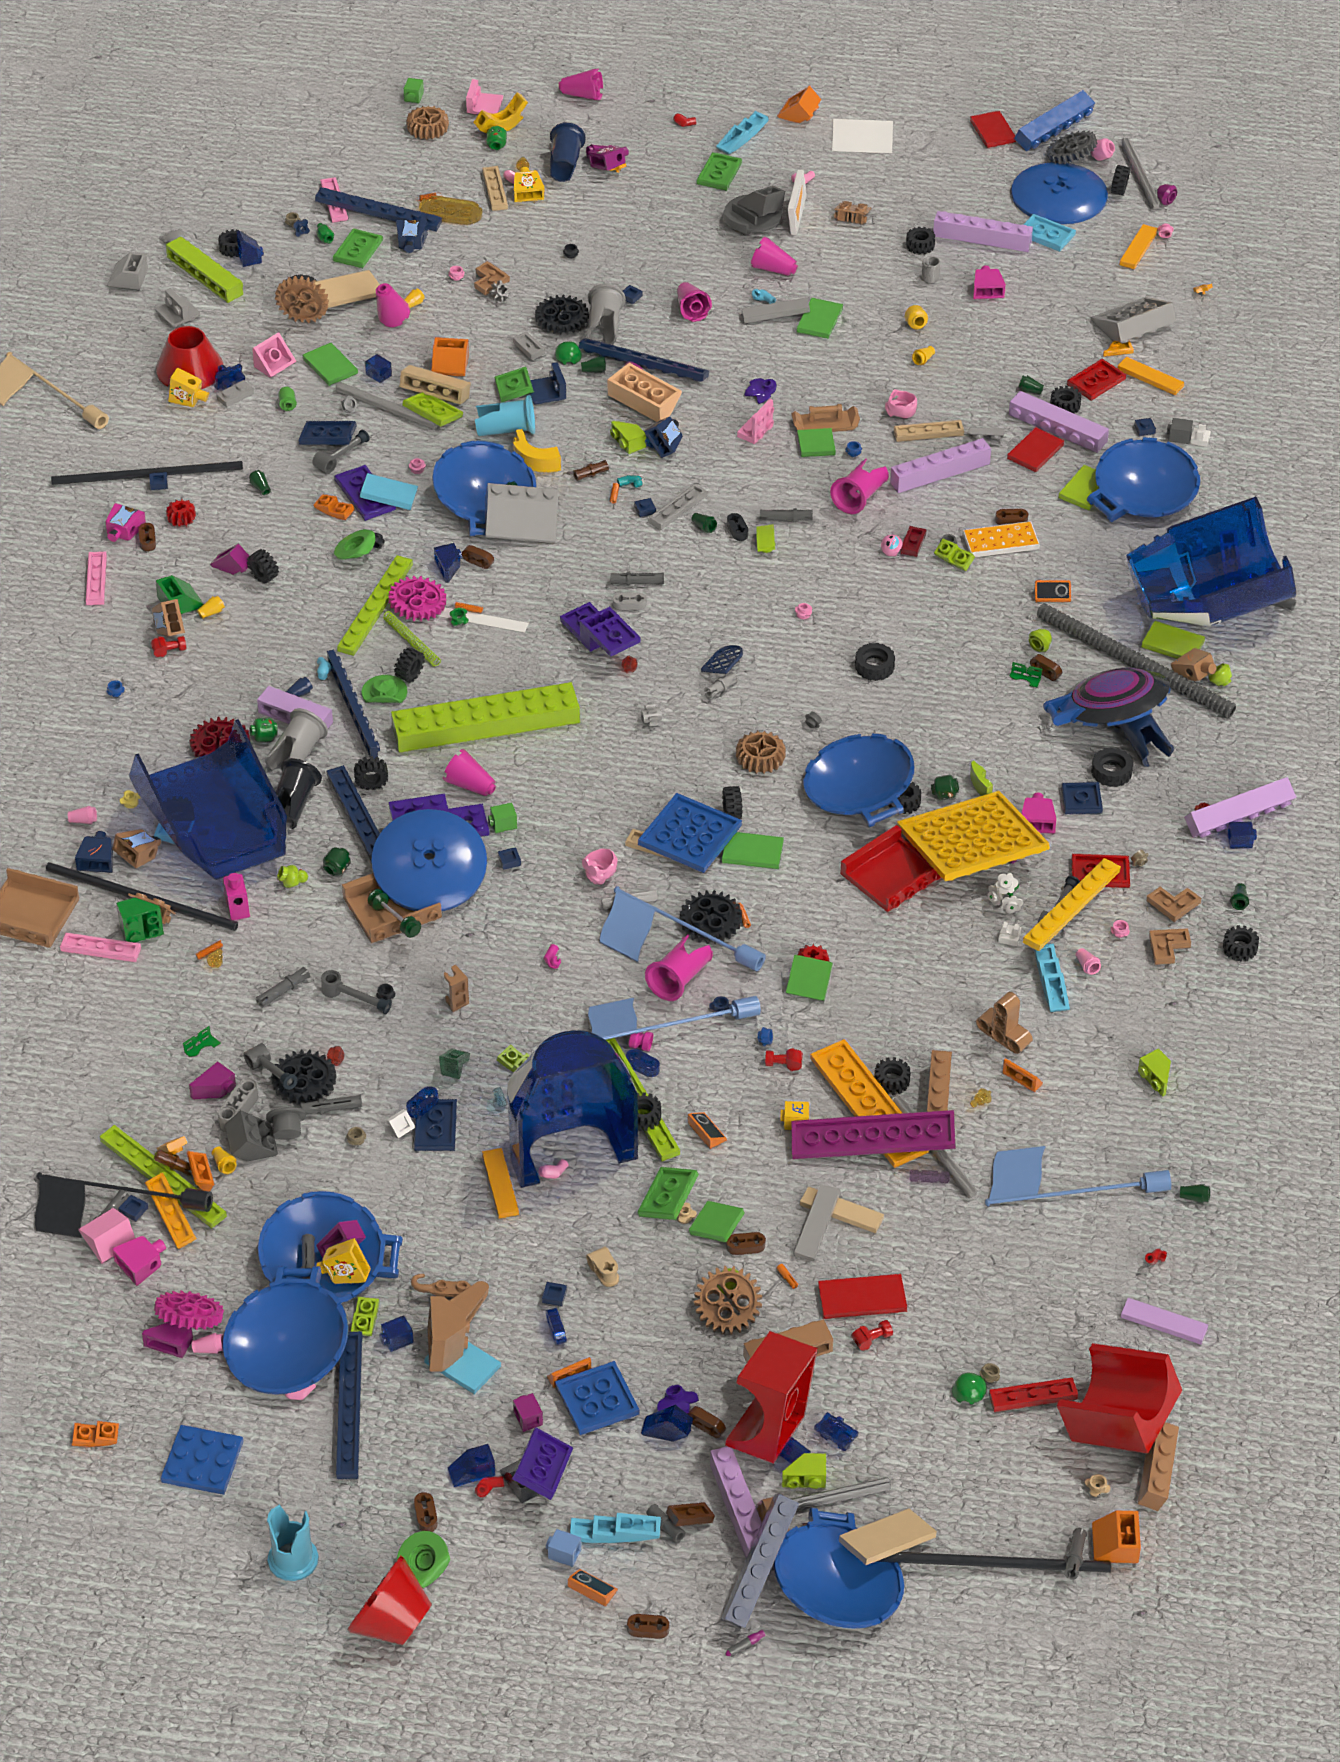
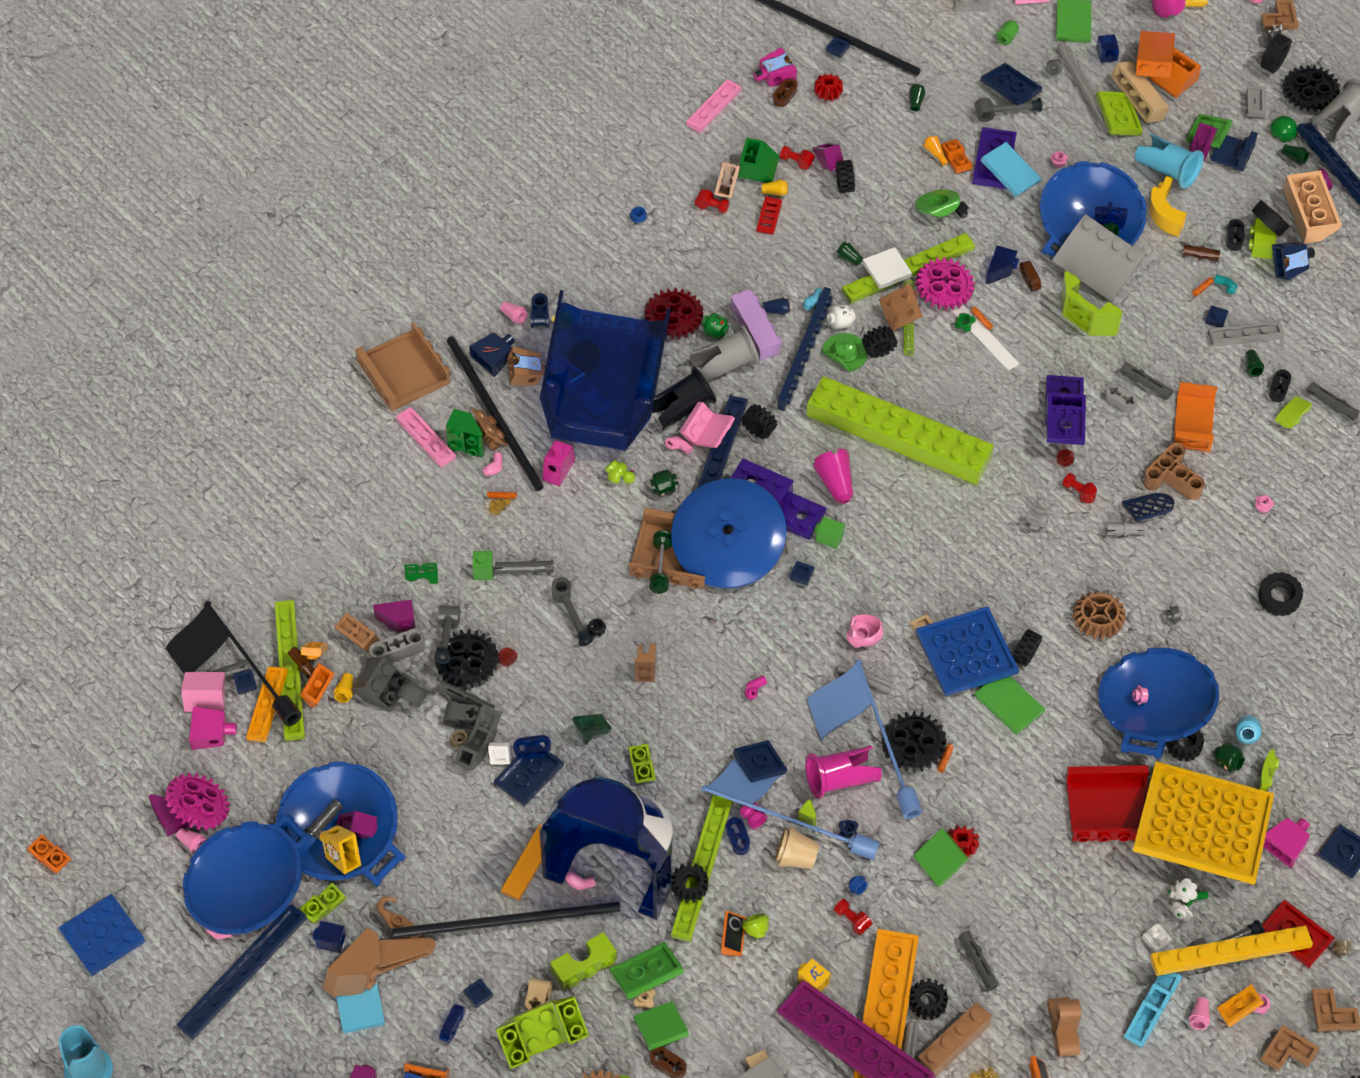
camera: 40 degrees right, 10 degrees up
(106, 801) = (539, 313): none -> dark blue piece
(182, 932) = (495, 466): none -> bright pink arm
(193, 1112) = (356, 632): none -> medium nougat hinge
(213, 574) = (804, 158): none -> red leg
(225, 628) = (772, 205): none -> red slope
(249, 1004) = (483, 565): none -> bright green brick
(310, 509) = (933, 145): none -> light orange cone
(318, 828) = (678, 443): none -> bright pink arm
(319, 620) = (849, 253): none -> dark green cone
(335, 802) = (705, 427): none -> bright pink bracket
(341, 1119) = (460, 715): none -> dark grey piece
(358, 666) = (841, 316): none -> white head
(362, 611) = (887, 268): none -> white tile
(373, 1121) = (476, 746): none -> dark grey arch
(401, 631) = (901, 307): none -> medium nougat hinge
(426, 348) = (1155, 54): none -> orange panel
(503, 475) = (1111, 214): none -> clear blue hips
(514, 302) = (1276, 53): none -> black tyre
(517, 387) = (1203, 139): none -> magenta plate
(525, 1230) = (503, 920): none -> black piece
(546, 556) = (1085, 314): none -> lime slope
(600, 442) = (1231, 234): none -> black beam
(609, 1001) = (760, 761): none -> dark blue tile
(611, 1232) = (571, 972): none -> lime arch
(622, 413) = (1270, 218): none -> black tyre
(634, 1276) = (541, 1029): none -> lime slope
(668, 678) = (1086, 492): none -> red leg
(682, 1011) = (807, 813): none -> lime slope
(696, 583) = (1195, 416): none -> orange panel
(698, 1040) = (796, 850): none -> tan piece
(719, 1109) = (756, 925): none -> lime cone
(722, 627) = (1174, 473): none -> medium nougat beam
(844, 785) = (1140, 695): none -> bright pink plate
(904, 1029) = (974, 953): none -> dark grey pin
(941, 760) = (1248, 729): none -> medium azure head
(1110, 936) = (1240, 1005): none -> light orange plate

